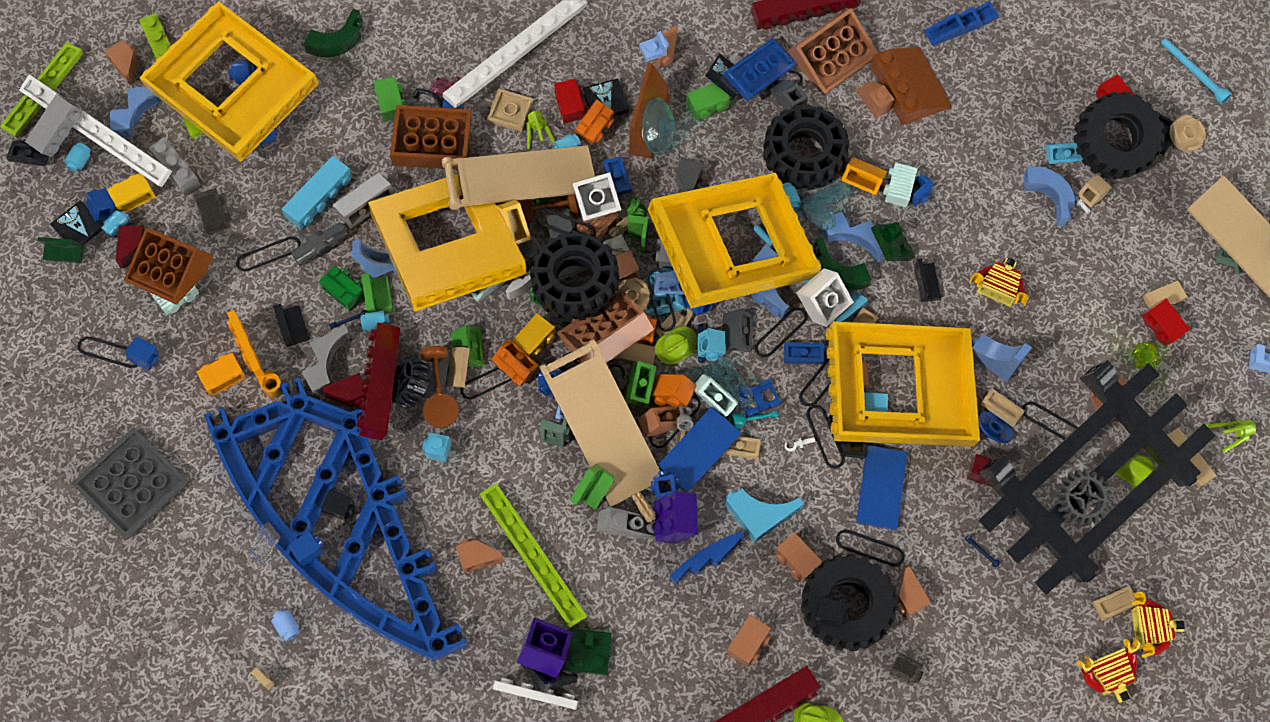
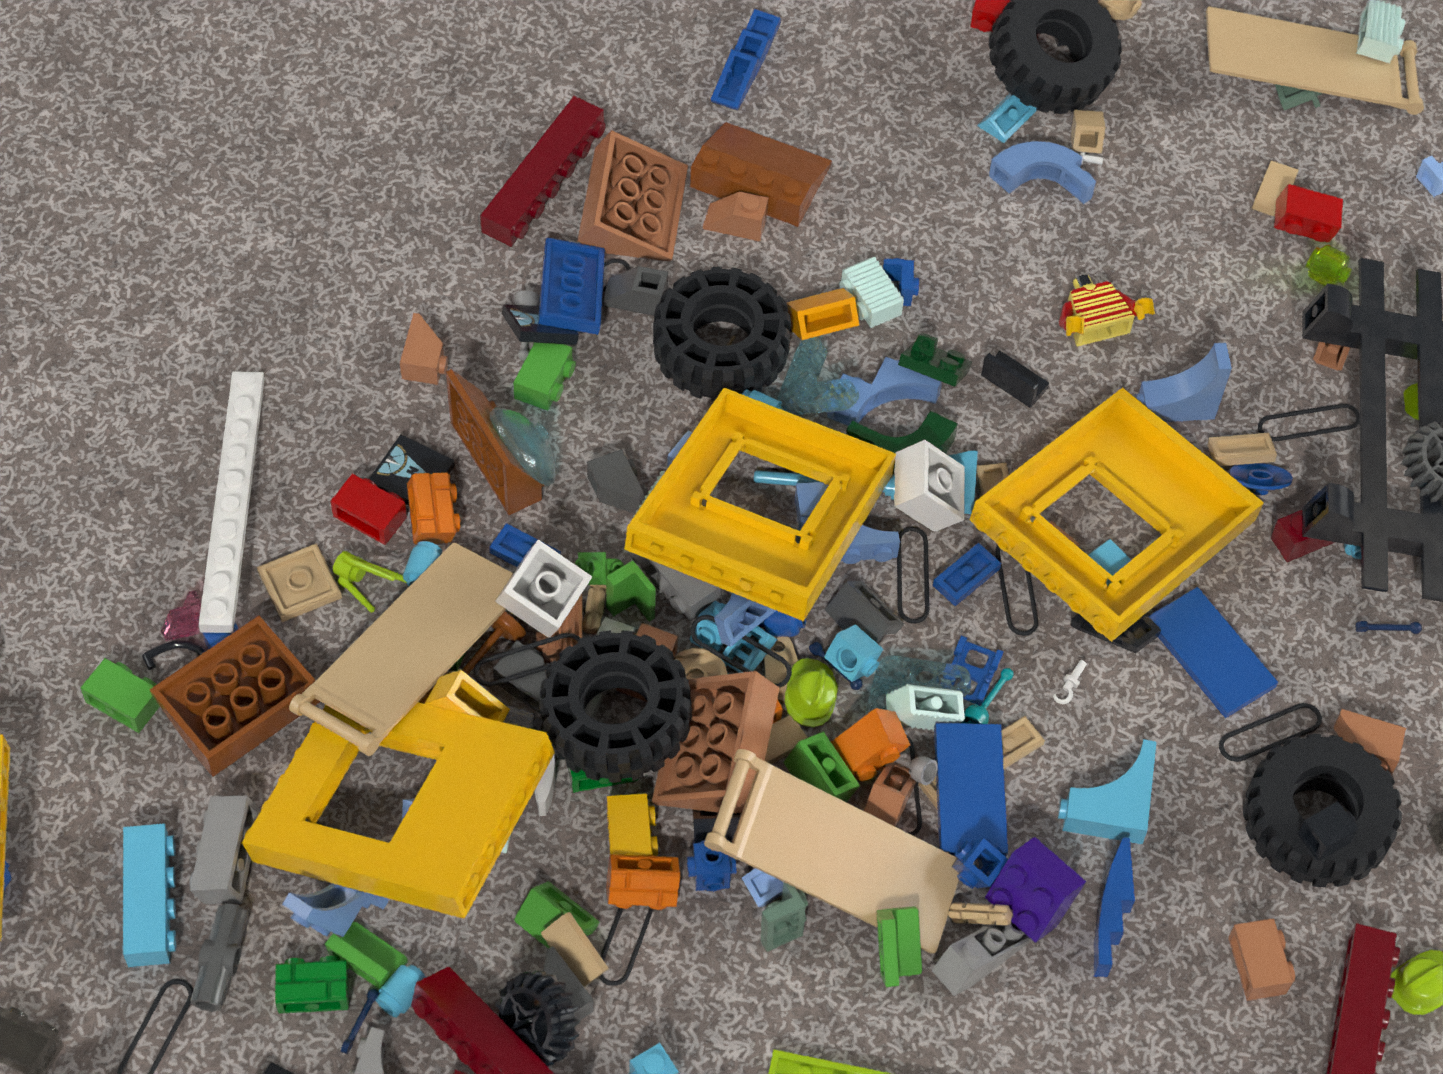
camera: 45 degrees left, 10 degrees down
(439, 409) = (609, 1021): dark orange piece -> none
(654, 47) = (418, 356): light blue bracket -> none
(797, 557) = (1211, 812): nougat brick -> none
(817, 439) = (1093, 639): black piece -> none

